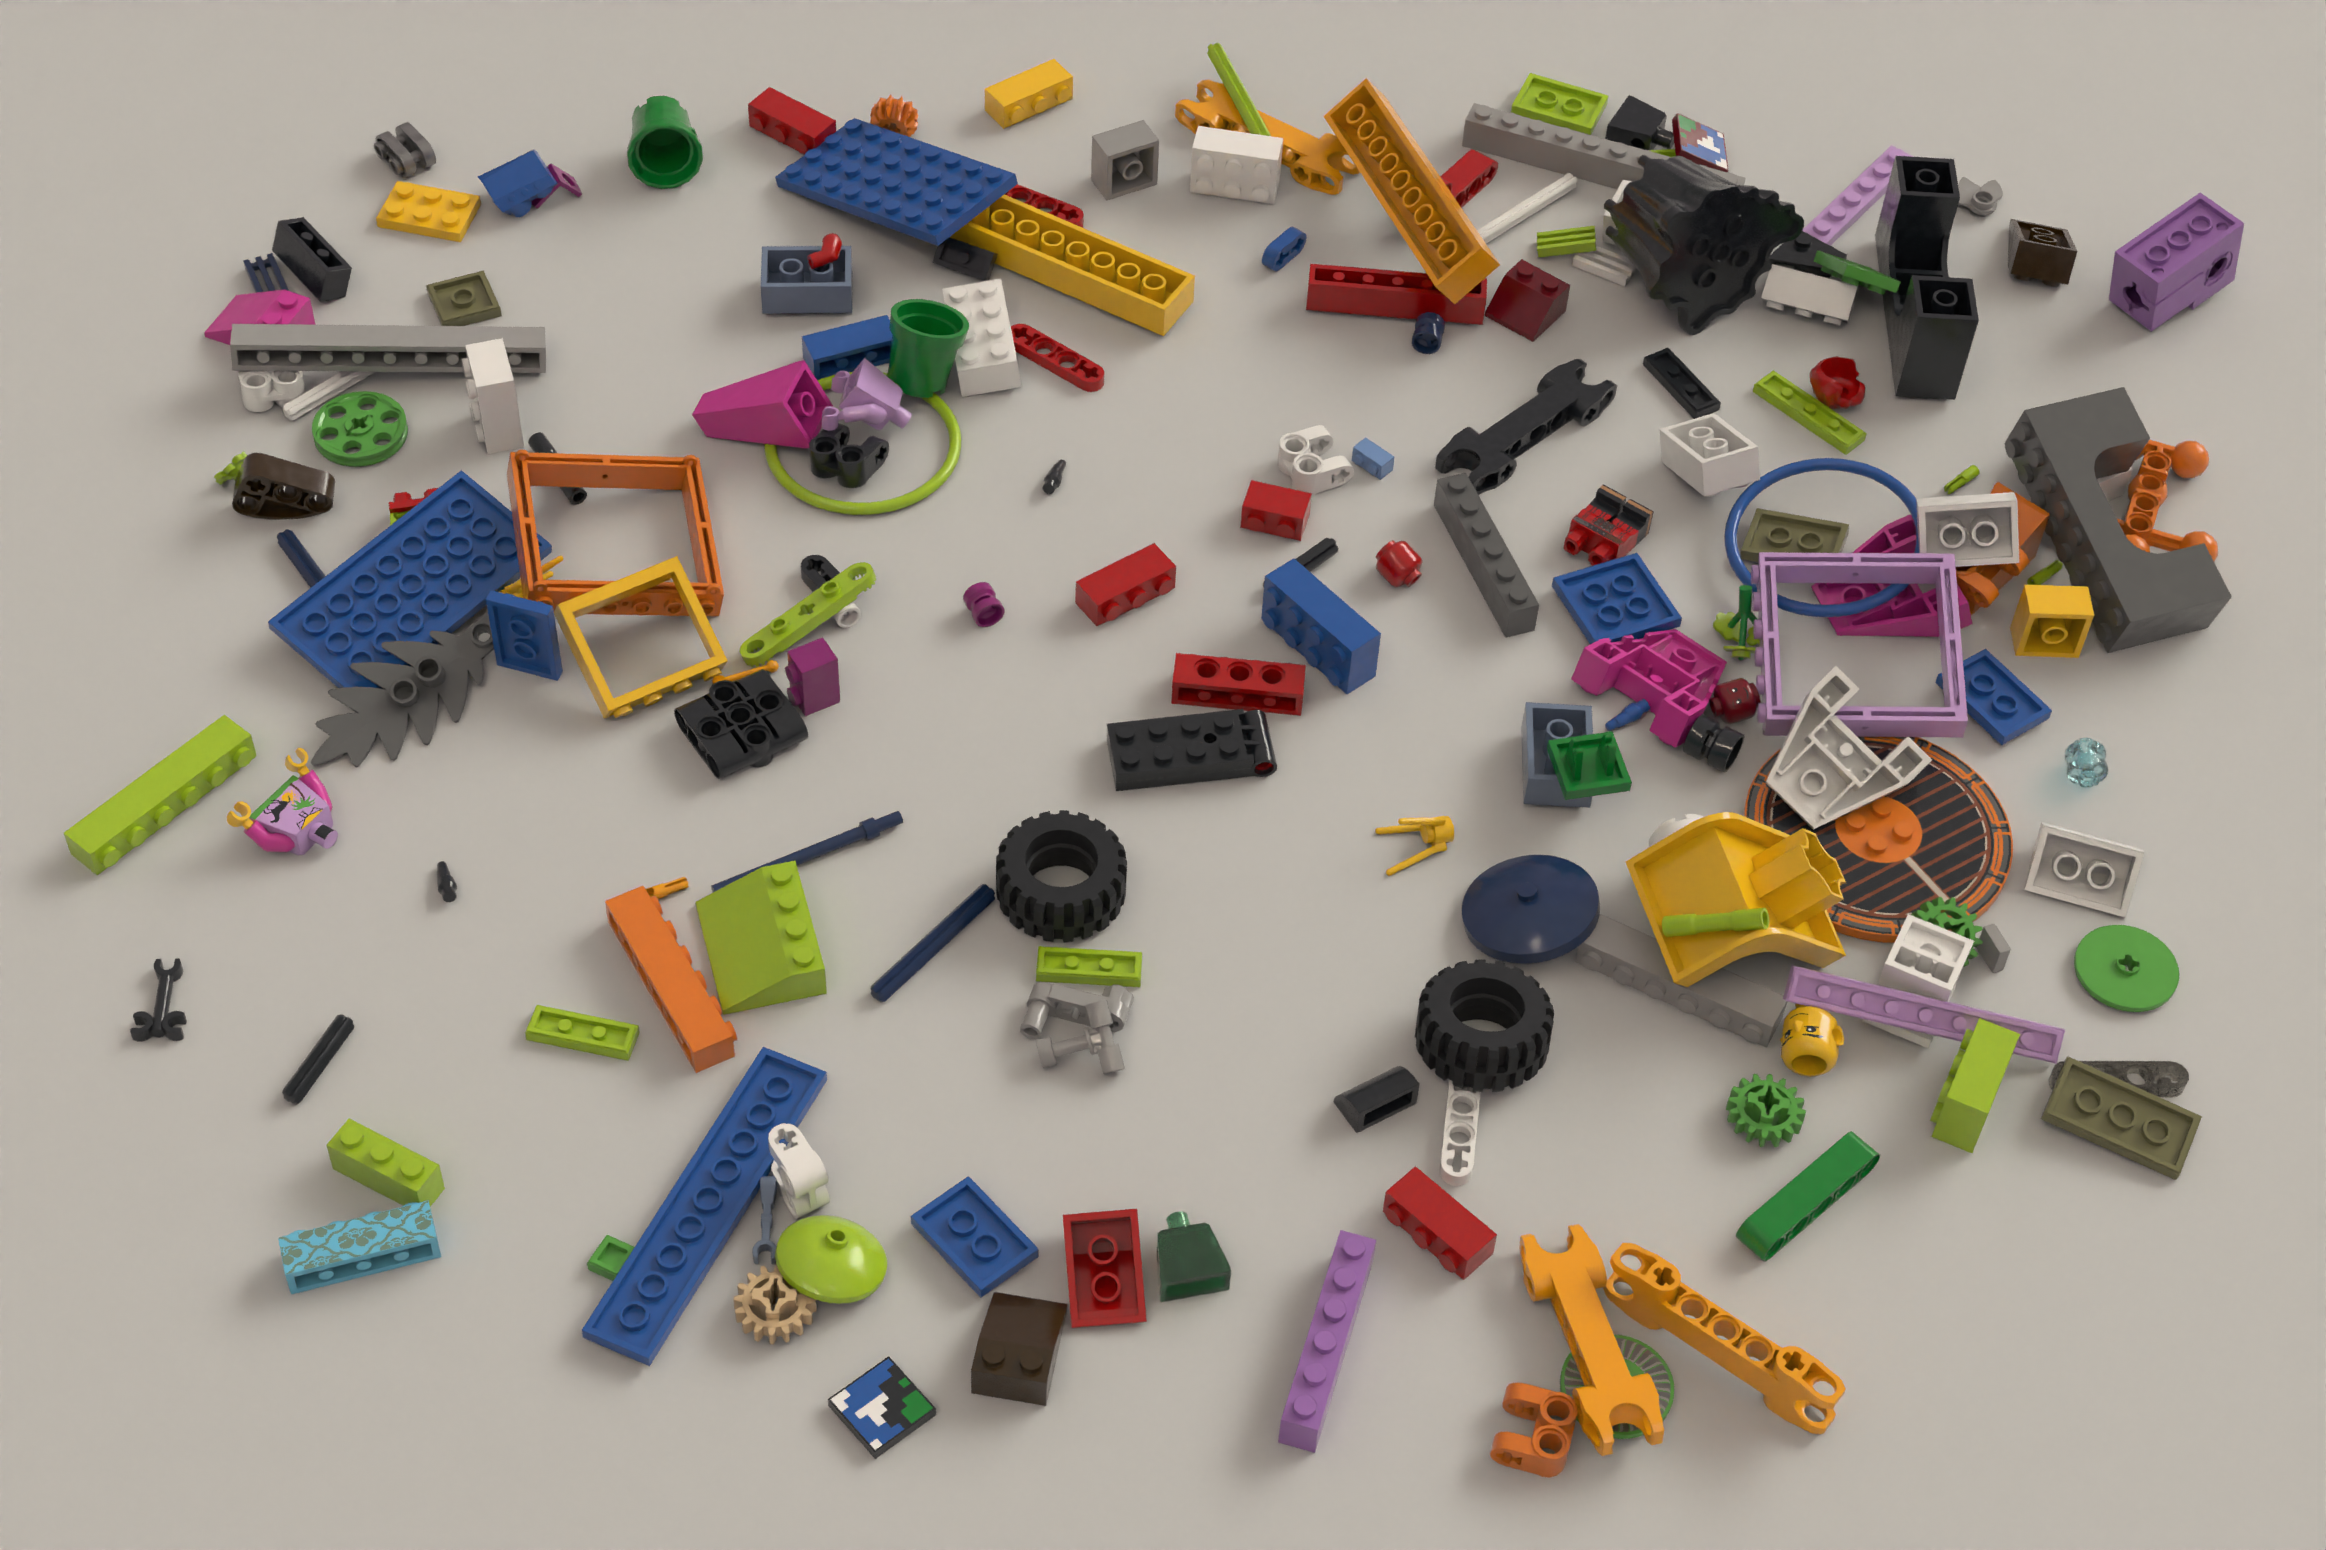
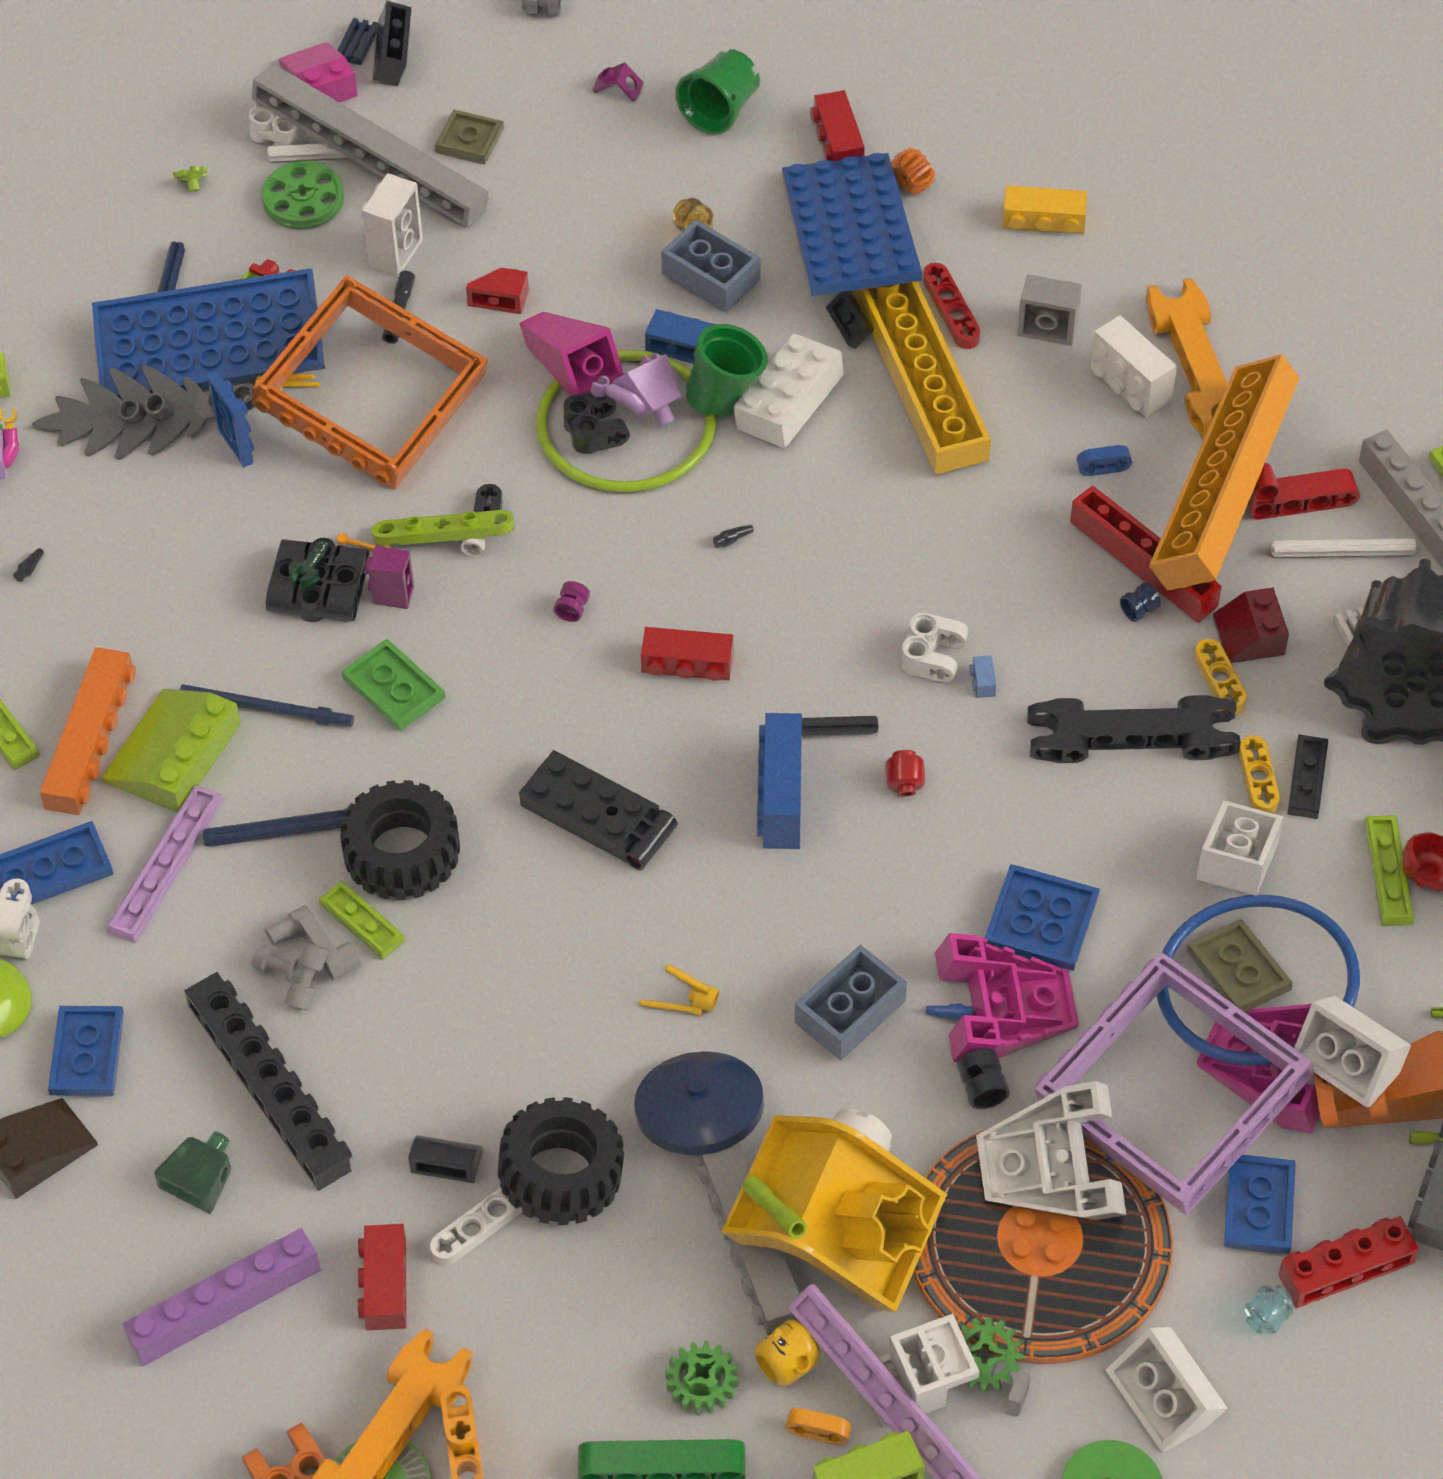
camera: 45 degrees right, 5 degrees up
(281, 489) = (200, 209): dark brown beam -> none
(428, 211) = (516, 51): yellow plate -> none
(519, 183) = (587, 65): blue slope -> none
(620, 589) = (309, 521): yellow window -> none
(640, 402) = (499, 290): none -> red slope
(662, 890) = (152, 665): light orange pin -> none
(731, 711) = (308, 565): none -> clear green bar
(745, 251) = (690, 209): none -> clear yellow head
(829, 252) = (732, 253): red arm -> none
(864, 1042) = (164, 864): none -> lavender tile
(904, 764) = (393, 684): none -> bright green plate
(1058, 355) = (835, 441): red beam -> none
(1104, 1268) = (139, 1134): red slope -> none
(1175, 1157) = (320, 1166): none -> black brick
(1236, 90) = (1198, 308): lime axle -> none
(1238, 684) = (711, 817): red brick -> none
(1275, 510) = (859, 669): red brick -> none
(1486, 555) = (978, 810): dark grey brick -> none
(1527, 338) = (1220, 664): none -> yellow beam
(1566, 241) = (1348, 599): lime tile -> none
(1589, 765) = (842, 1025): green plate -> none
(1608, 527) = (1100, 853): hips -> none
(1632, 392) = (1264, 764): none -> yellow beam
(1732, 628) = (1107, 995): plant -> none
(1735, 701) = (1037, 1056): dark red head -> none
(1887, 1080) = (818, 1426): none -> light orange beam
(2051, 621) = (1370, 1176): yellow brick -> none
(2096, 690) = (1348, 1261): none -> red brick

